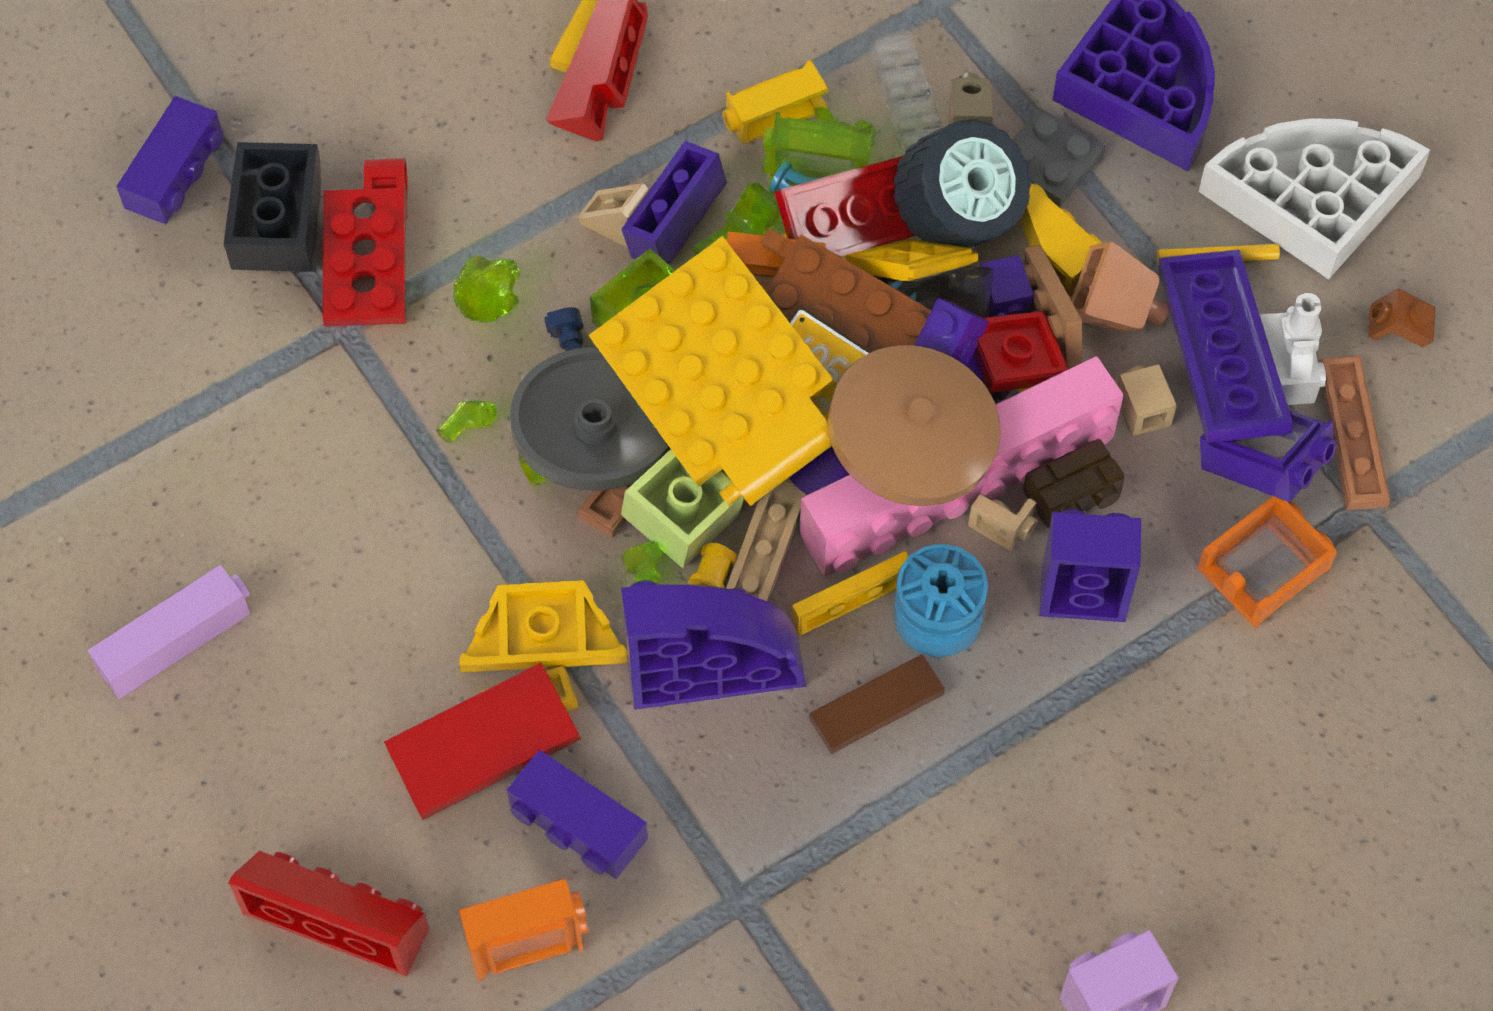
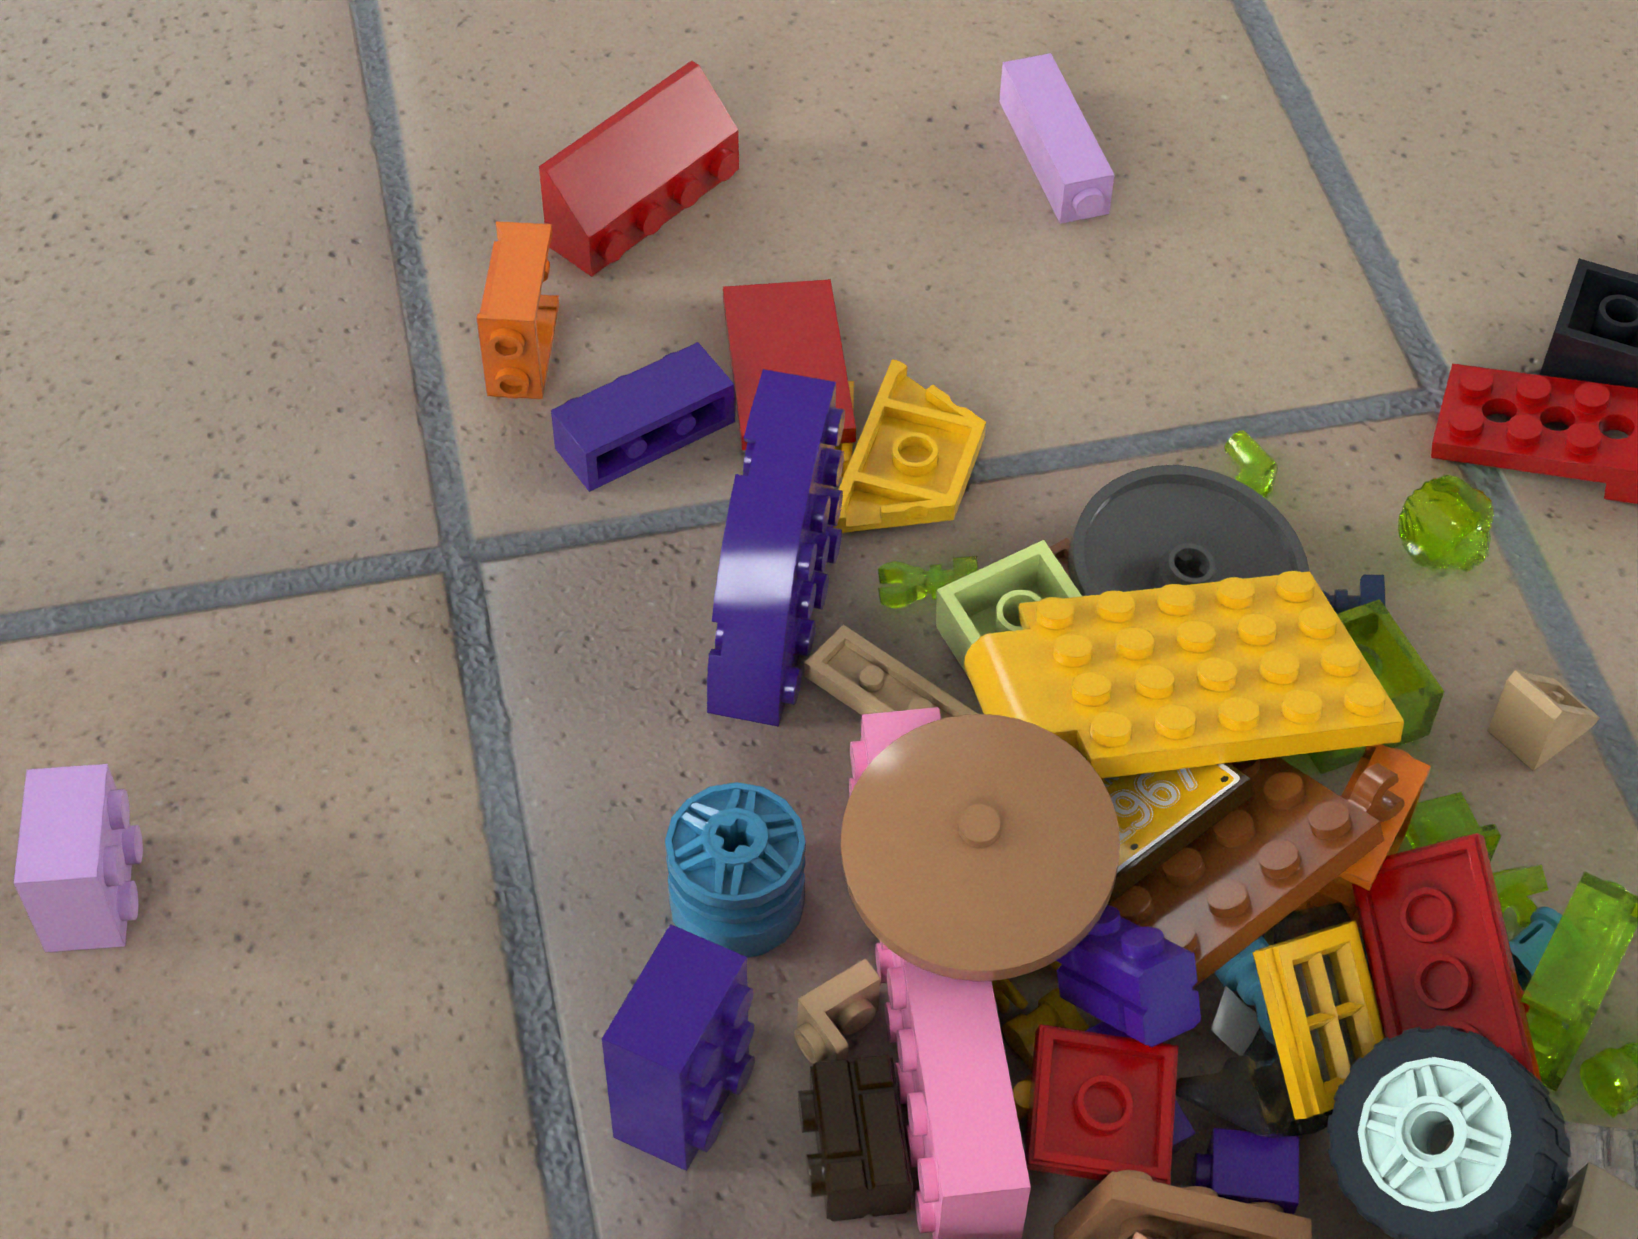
camera: 110 degrees right, 10 degrees down
(675, 203) = (1531, 772): dark purple brick -> none
(713, 566) = (914, 645): yellow bush -> none
(847, 595) = (805, 785): yellow tile -> none
(876, 703) = (636, 771): reddish brown tile -> none

